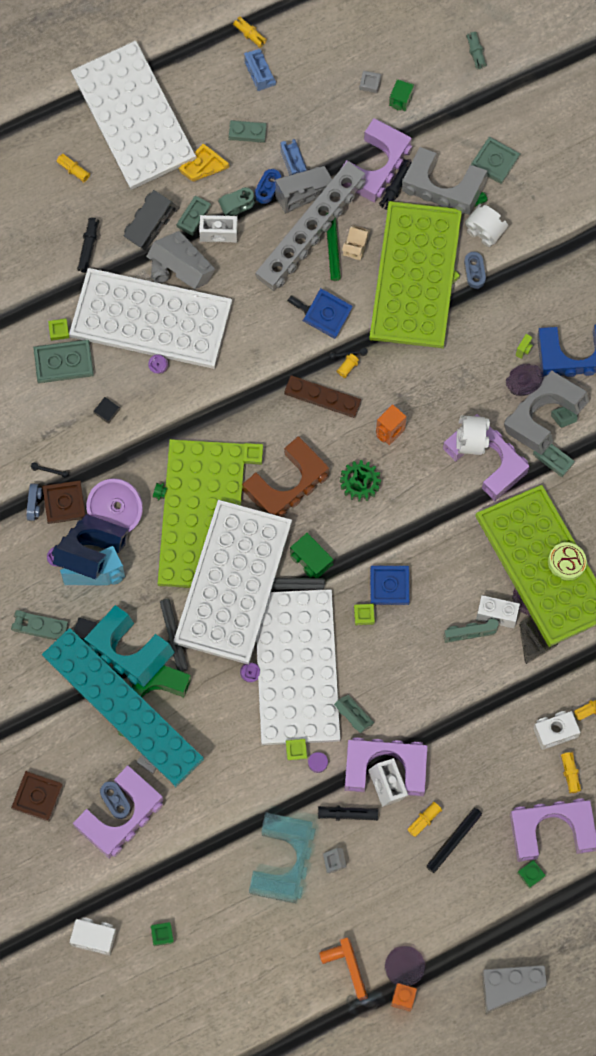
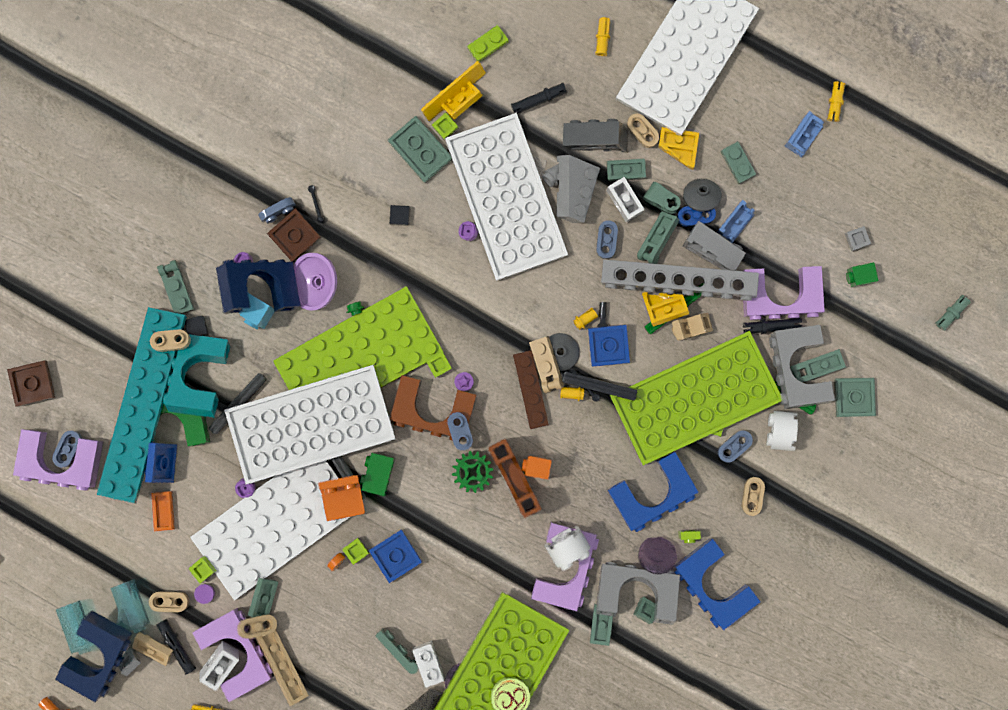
camera: 60 degrees right, 15 degrees up
(14, 257) = (487, 43): none -> lime plate
(41, 303) = (456, 96): none -> yellow bracket
(85, 647) = (169, 340): none -> tan plate
(171, 183) = (645, 129): none -> tan plate
(186, 726) = (161, 463): none -> blue plate
(223, 754) = (163, 511): none -> orange tile
(241, 264) = (607, 240): none -> sand blue plate
(254, 171) = (700, 200): none -> dark grey dish
(265, 224) = (658, 238): none -> sand green plate
(279, 442) = (464, 381): none -> medium lavender tile
(293, 319) = (584, 319): none -> yellow pin
(304, 795) = (169, 601): none -> tan plate
(307, 364) = (570, 348): none -> dark grey dish
(309, 370) = (546, 364): none -> tan plate
(311, 592) = (342, 498): none -> orange bracket
(319, 466) = (460, 431): none -> sand blue plate
(326, 251) = (665, 307): none -> yellow wing
(333, 898) = (111, 641): none -> dark blue arch
(336, 833) = (152, 648): none -> tan plate
(356, 339) = (600, 386): none -> black axle
(362, 635) = (336, 561): none -> orange tile
(375, 728) = (256, 626): none -> tan plate
(408, 451) = (514, 478): none -> dark orange arch
(422, 733) = (282, 668): none -> tan plate
(452, 167) = (819, 366): none -> sand green plate
(480, 330) = (680, 489): none -> blue arch
(526, 280) = (754, 496): none -> tan plate

